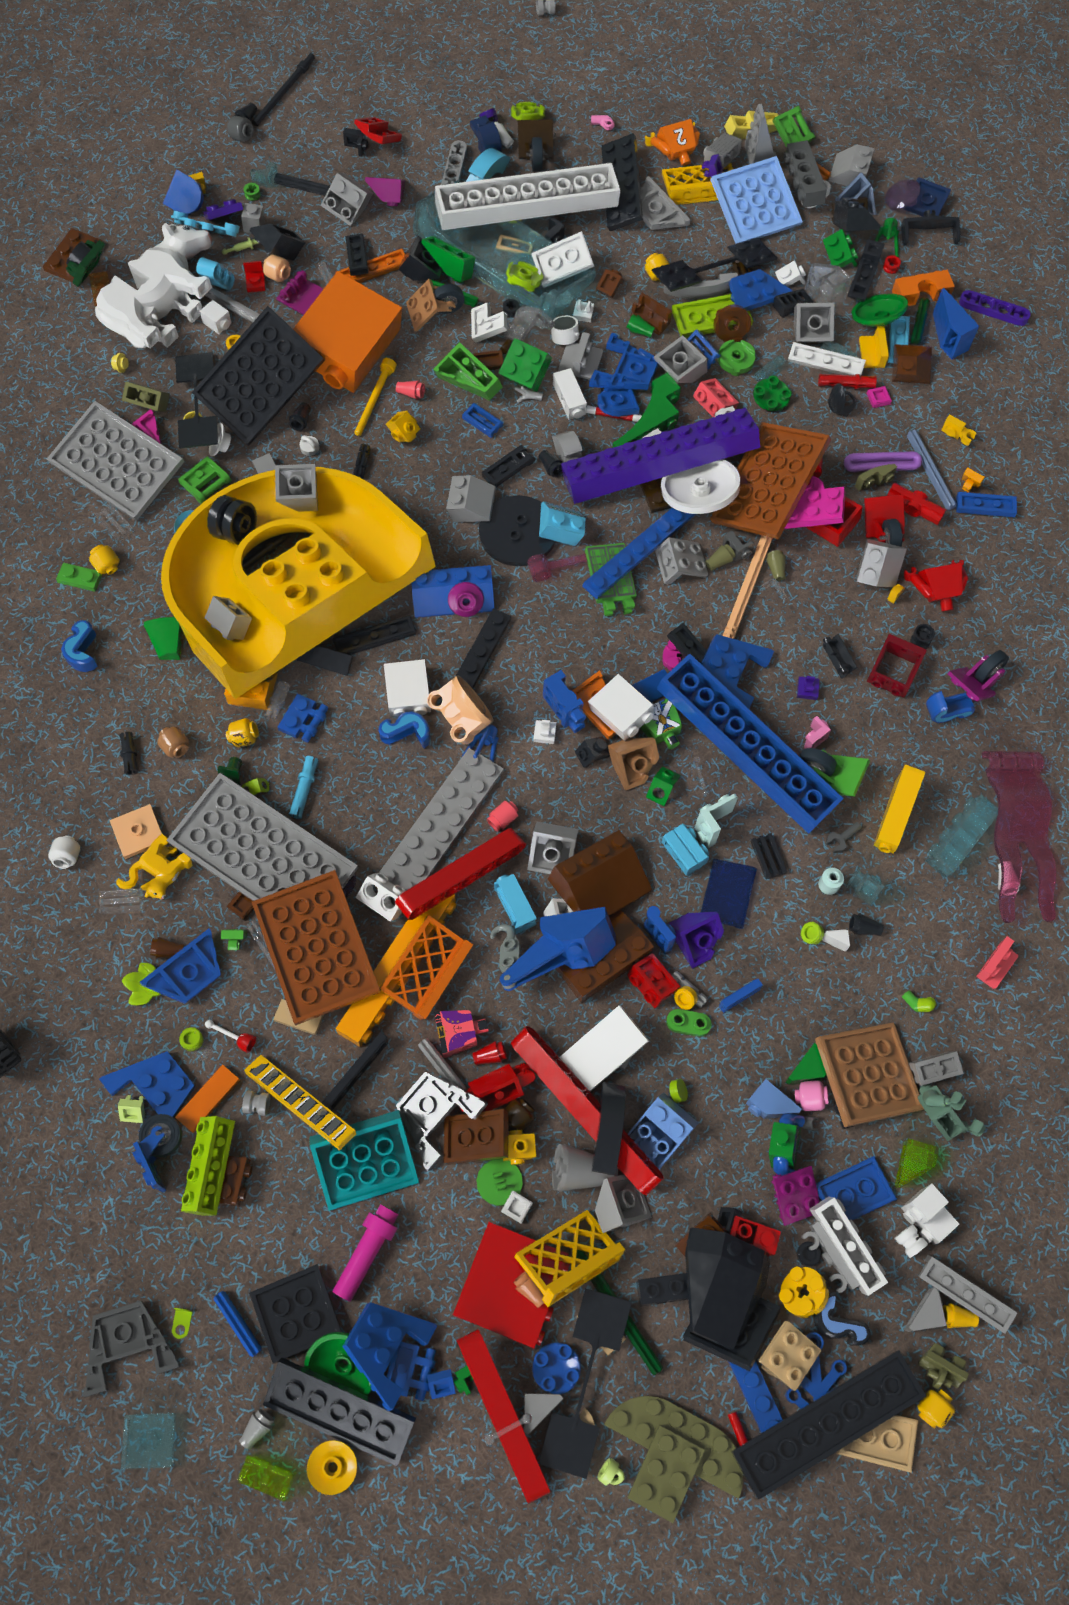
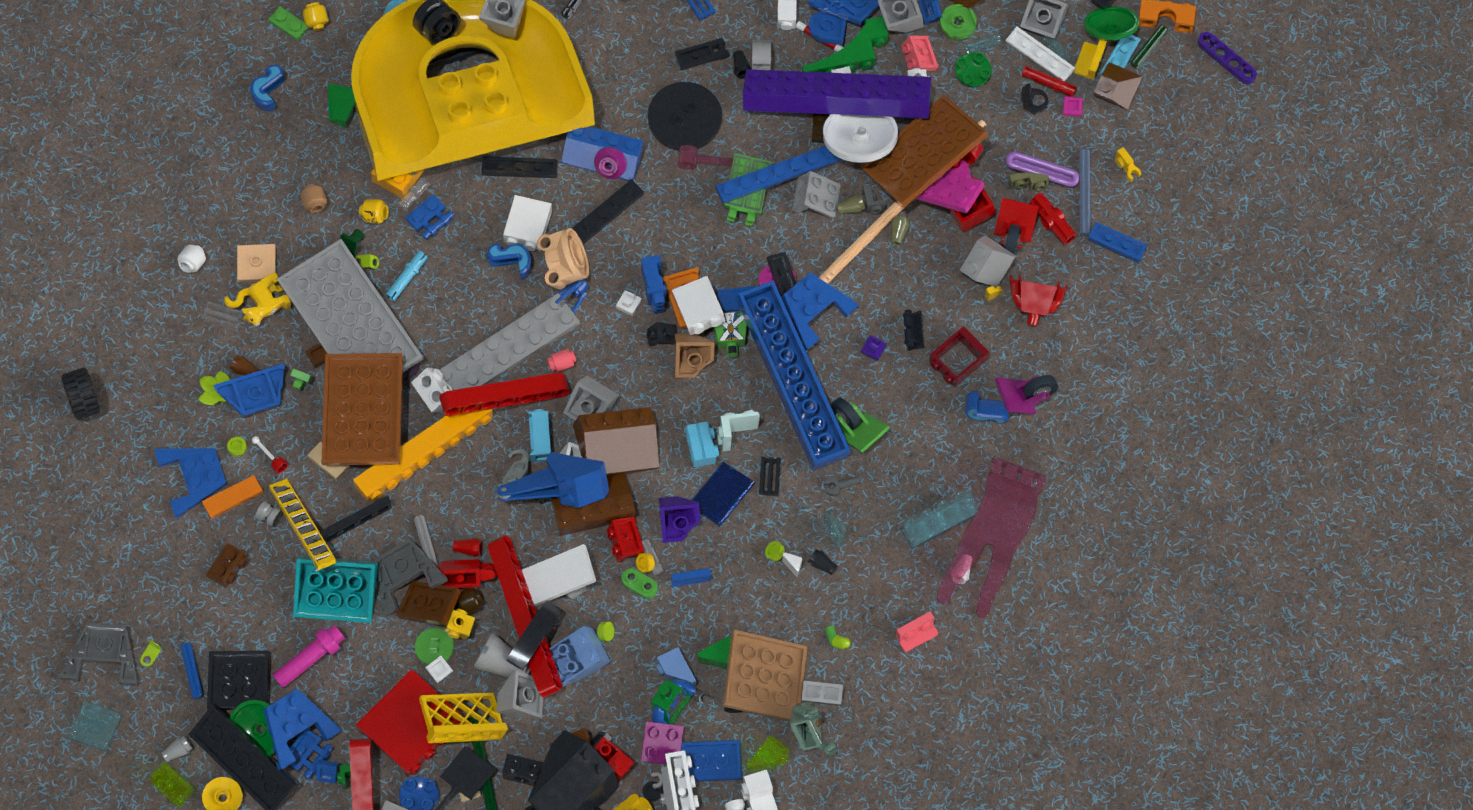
camera: 20 degrees right, 0 degrees up
(128, 753) = (273, 194): black pin -> none
(131, 1110) = (170, 483): yellowish green tile -> none
(157, 1138) = (183, 510): plate -> none
(207, 1166) = (213, 546): lime brick -> none
(228, 618) = (397, 109): light grey brick -> none
(327, 659) = (471, 174): black tile -> none
(442, 977) = (457, 469): orange fence -> none
(458, 1031) = (449, 519): torso -> none
(470, 499) = (653, 73): light grey slope -> none
(529, 1289) = (419, 725): nougat cone -> none
(561, 524) = (723, 124): medium azure slope -> none
(660, 932) = (647, 502): blue plate -> none
(665, 780) = (710, 381): green bracket -> none
(812, 1095) = (711, 676): bright pink head -> none
(818, 734) = (857, 392): bright pink bracket -> none
(831, 881) = (809, 514): light aqua brick -> none
(898, 809) = (896, 477): yellow slope -> none
(922, 636) = (996, 336): black wheel -> none
(953, 325) = (1172, 69): blue slope -> none
(971, 479) = (1115, 215): light orange tile -> none

